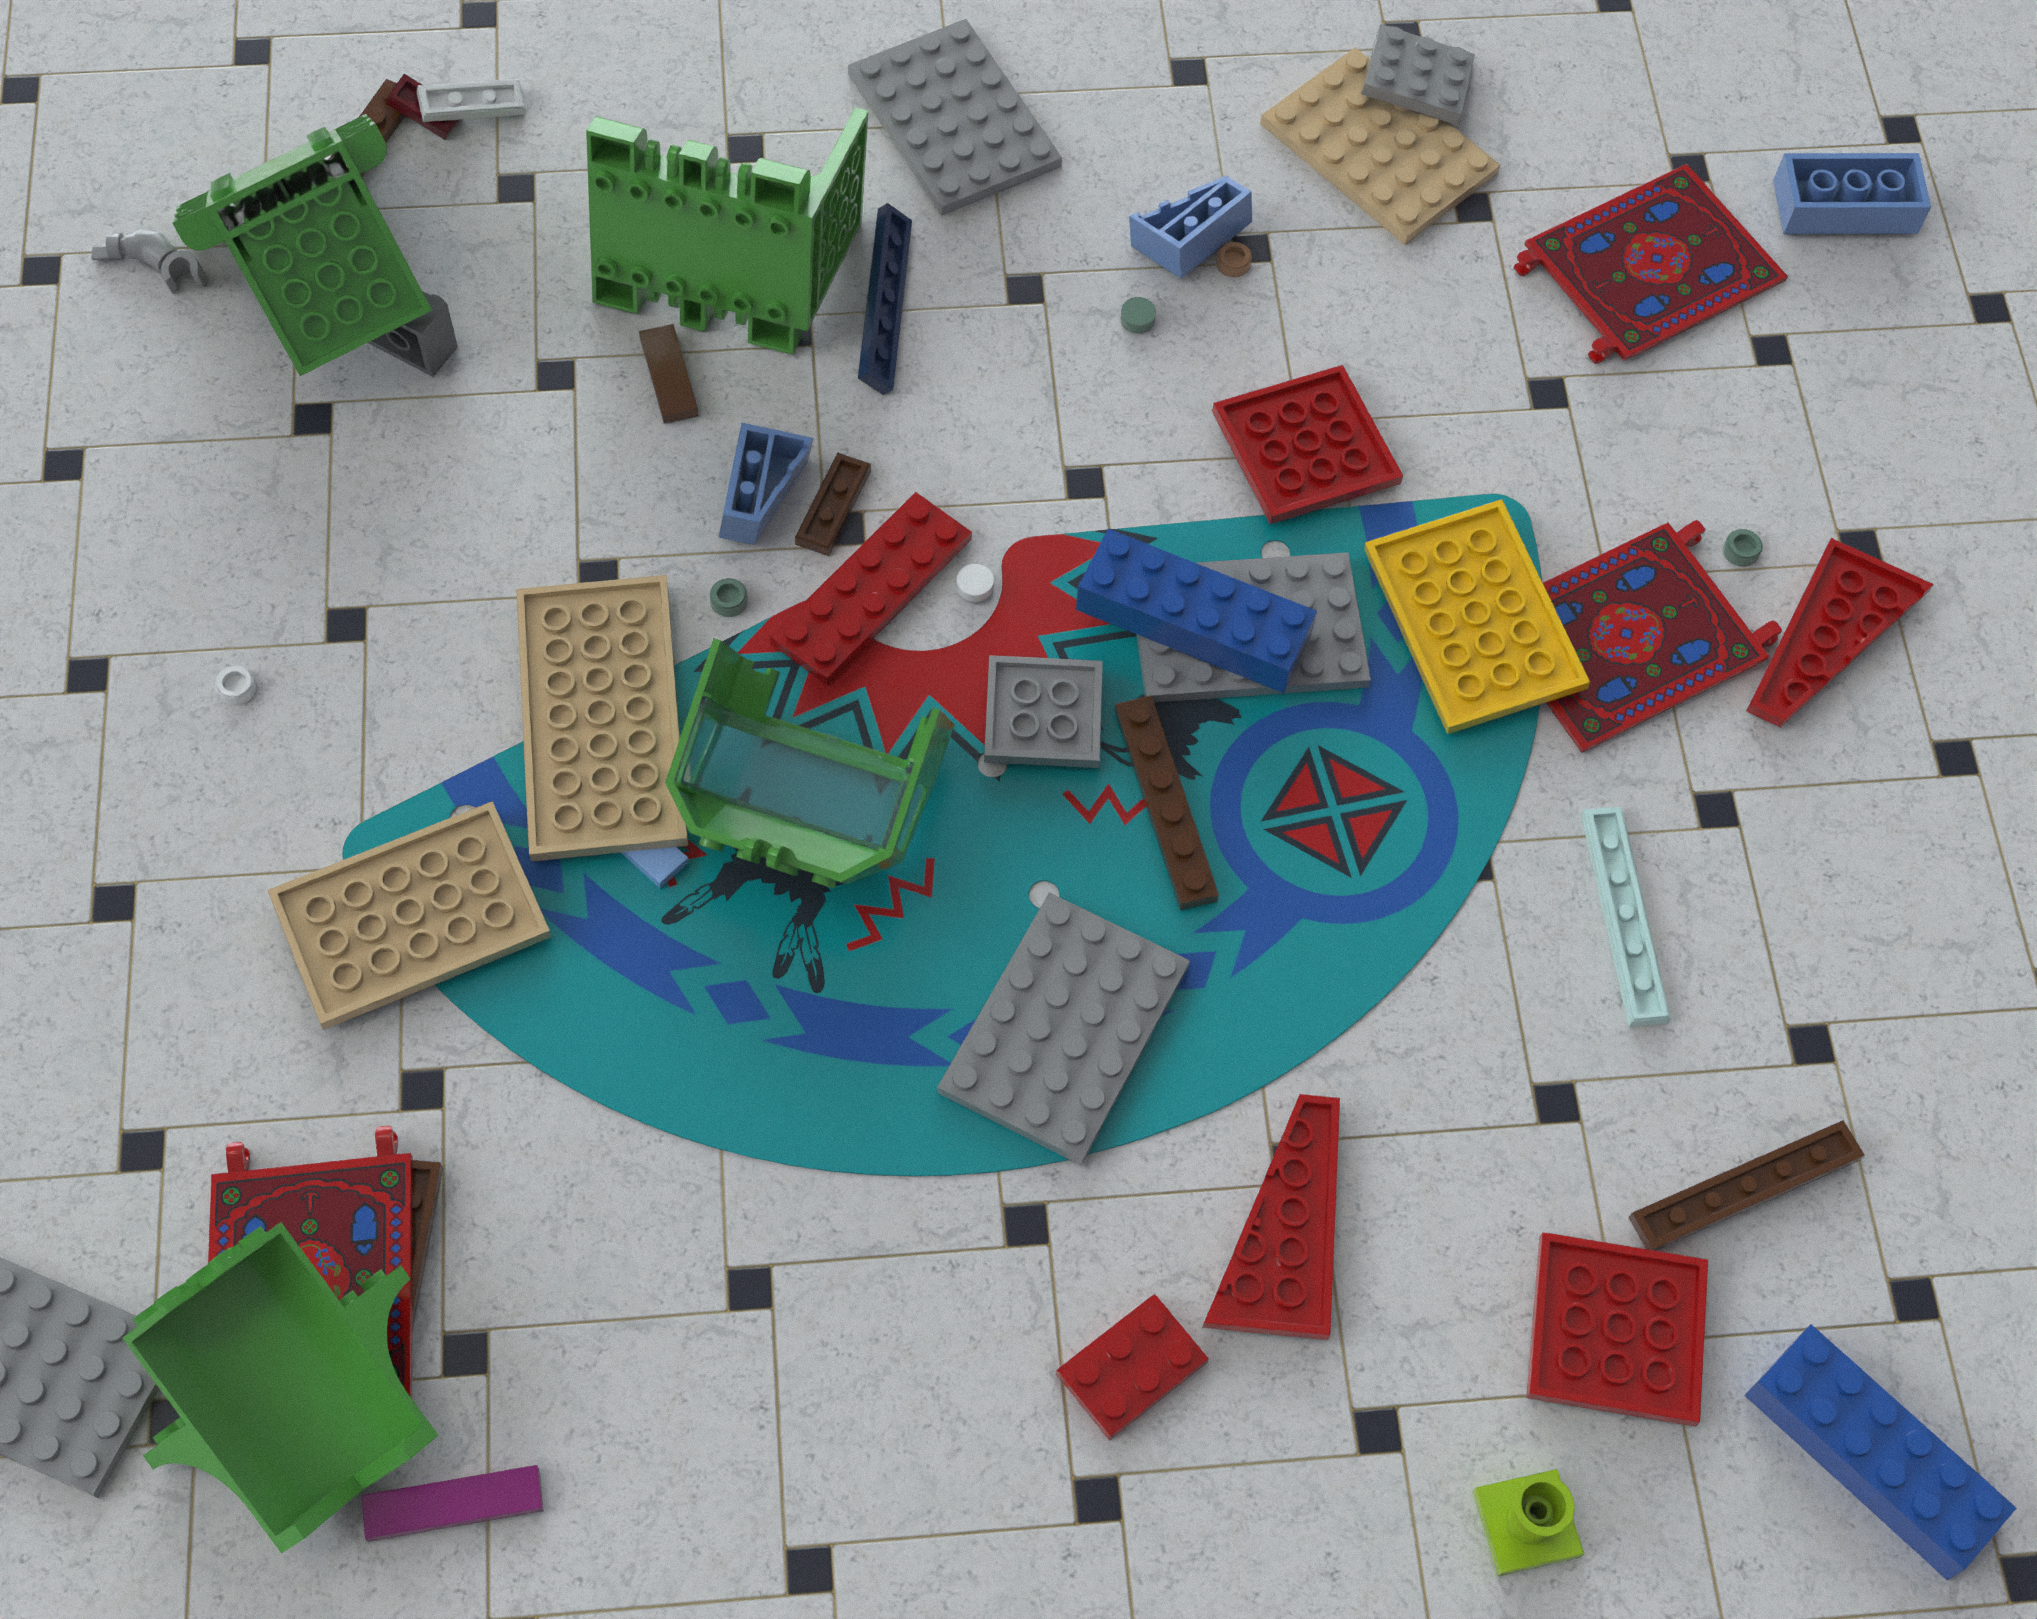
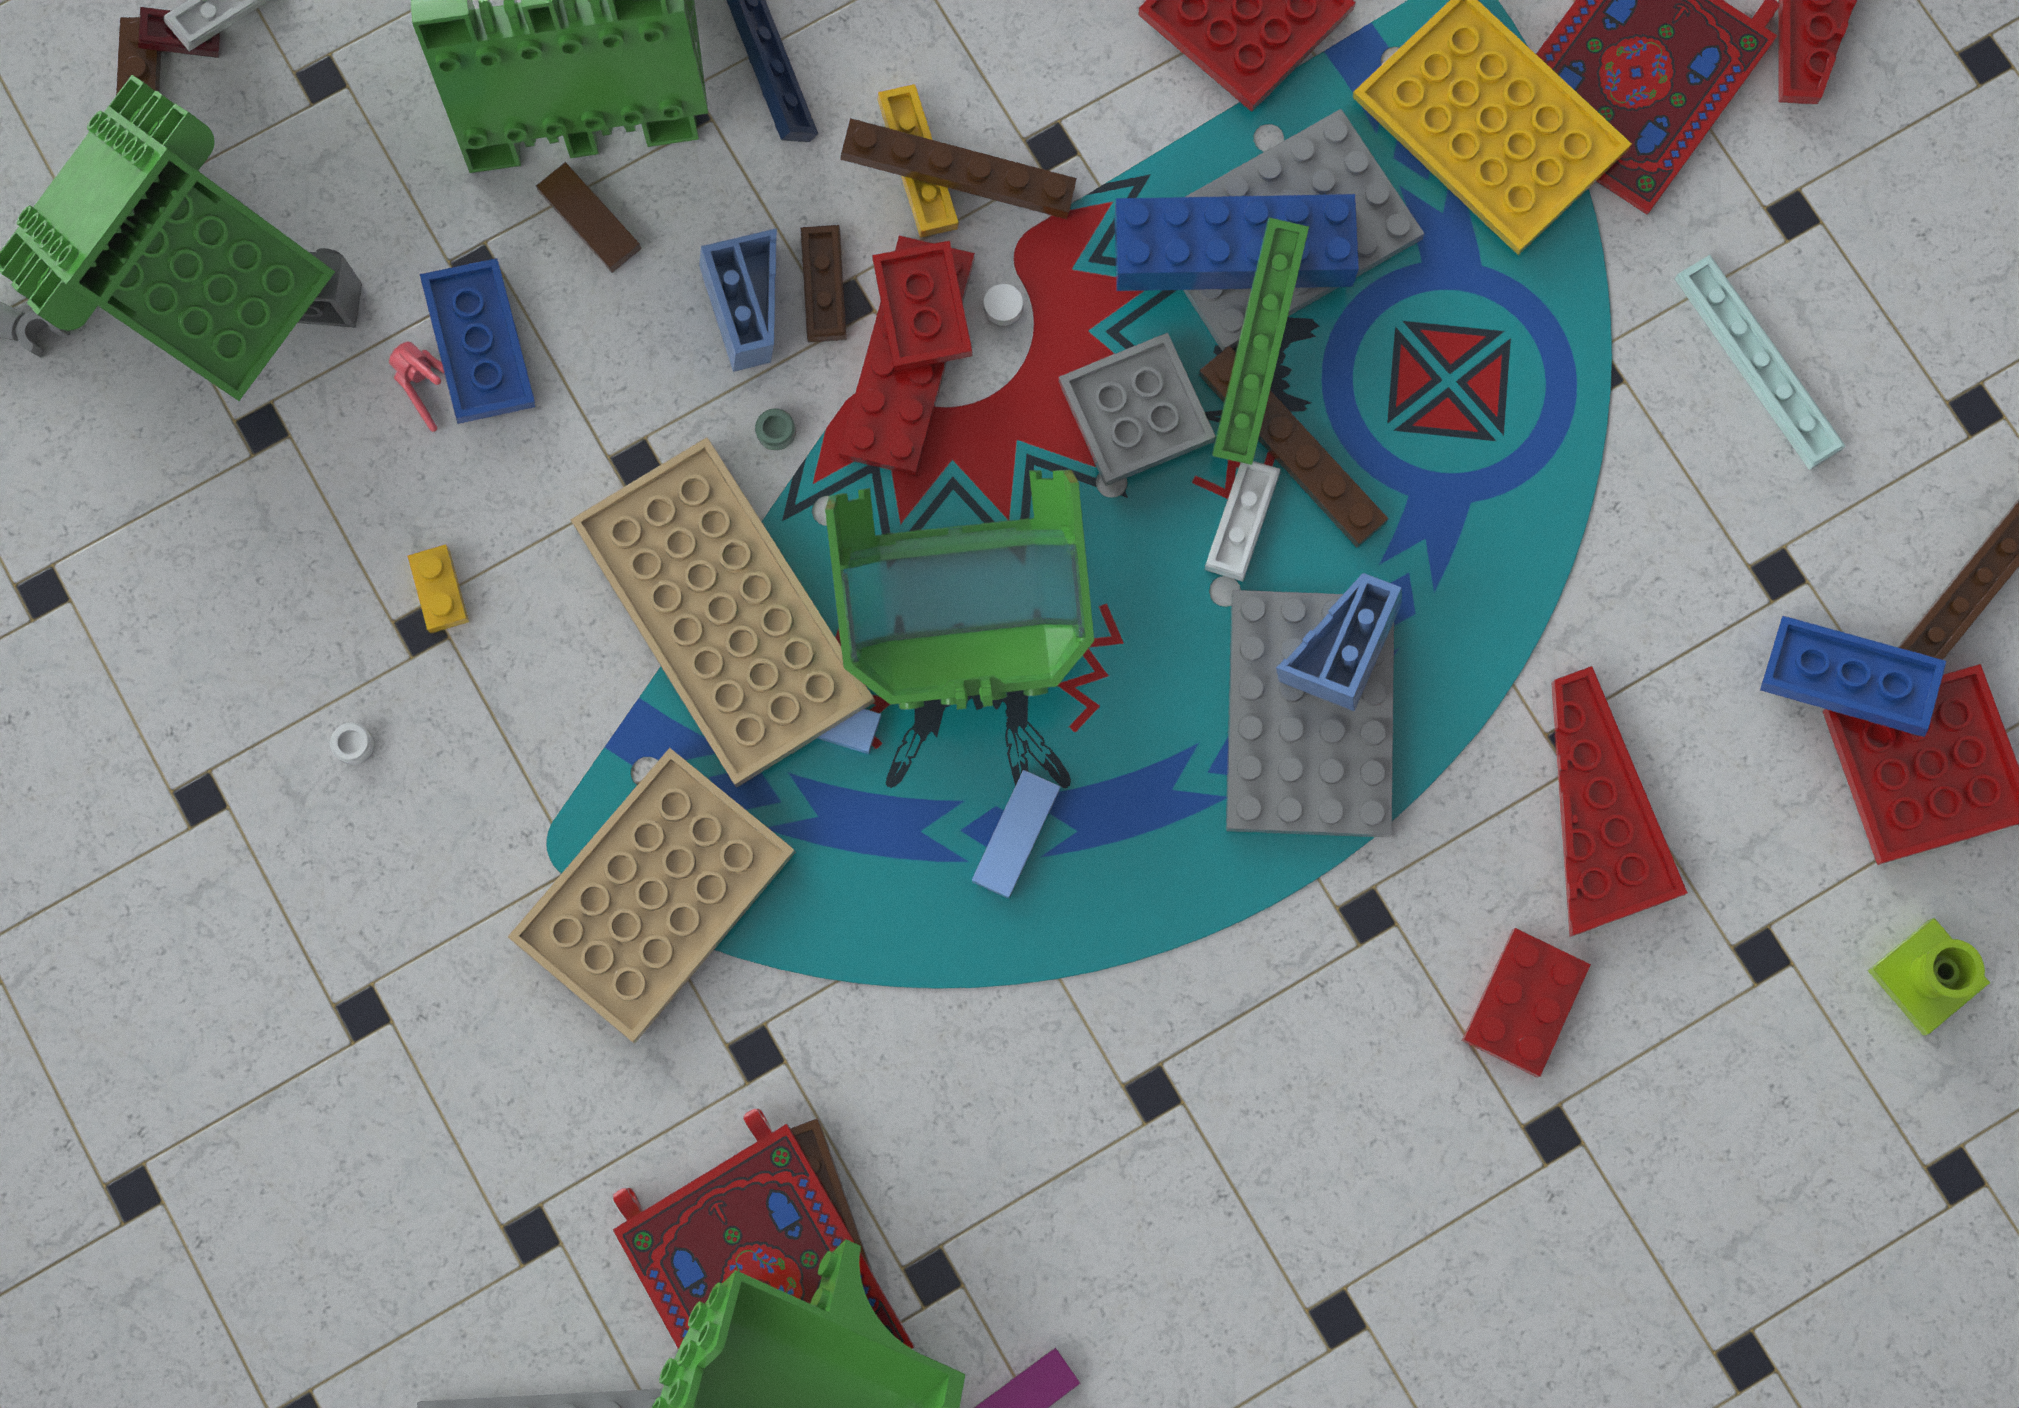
camera: 20 degrees left, 15 degrees up
(378, 598) = (438, 588): none -> yellow plate
(461, 423) = (415, 366): none -> coral plant
(522, 424) = (477, 341): none -> blue plate
(749, 1009) = (1016, 834): none -> light blue tile
(901, 548) = (922, 305): none -> red plate
(963, 443) = (929, 202): none -> yellow plate
(993, 461) = (958, 168): none -> reddish brown plate
(1089, 841) = (1242, 520): none -> white tile
(1121, 972) = (1345, 645): none -> medium blue wedge
(1173, 692) = (1260, 340): none -> bright green plate
(1579, 1213) = (1853, 676): none -> blue plate

